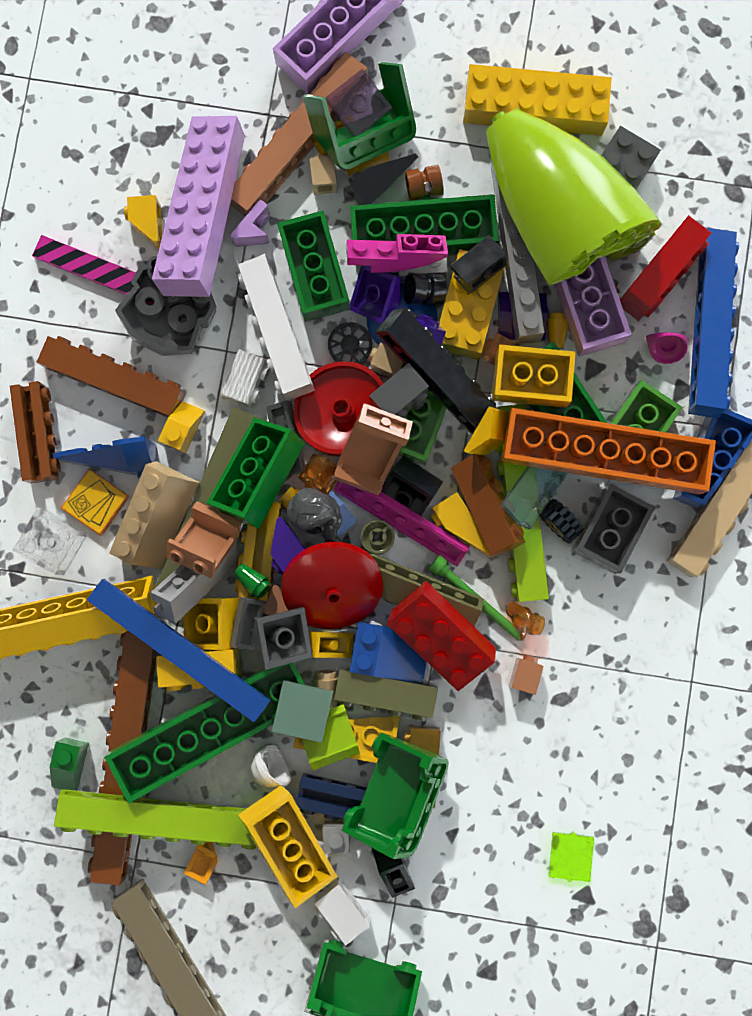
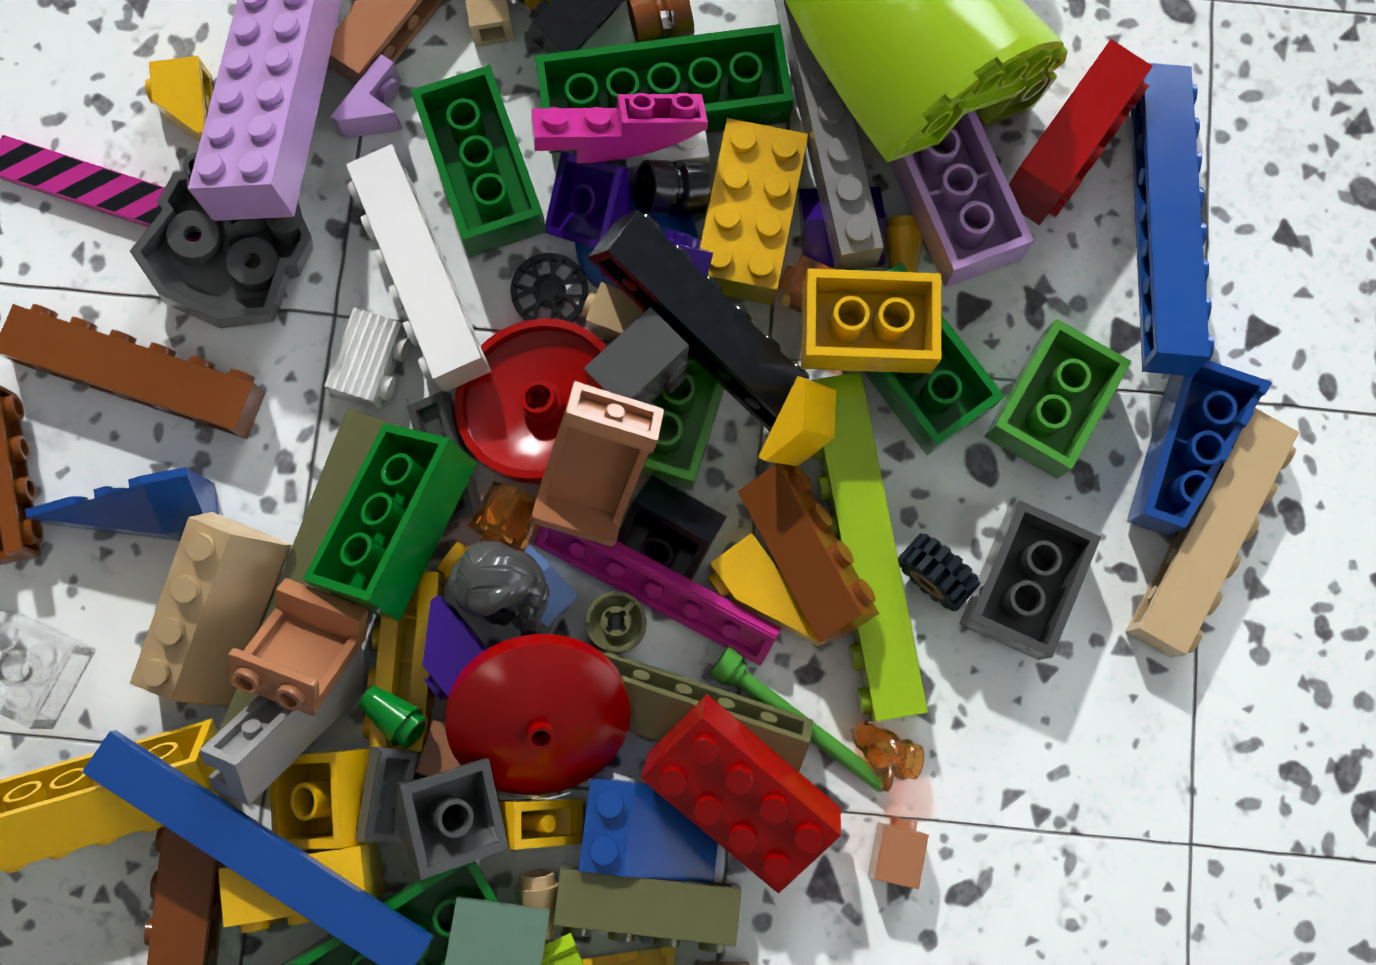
camera: 15 degrees left, 5 degrees down
(95, 502) = (106, 593): yellow tile -> none
(181, 427) = (257, 451): yellow slope -> none
(479, 264) = (763, 139): black hinge -> none
(532, 495) = (890, 513): clear light blue windscreen -> none
(608, 451) = (1012, 443): orange brick -> none
(667, 346) = (1093, 263): dark pink piece -> none

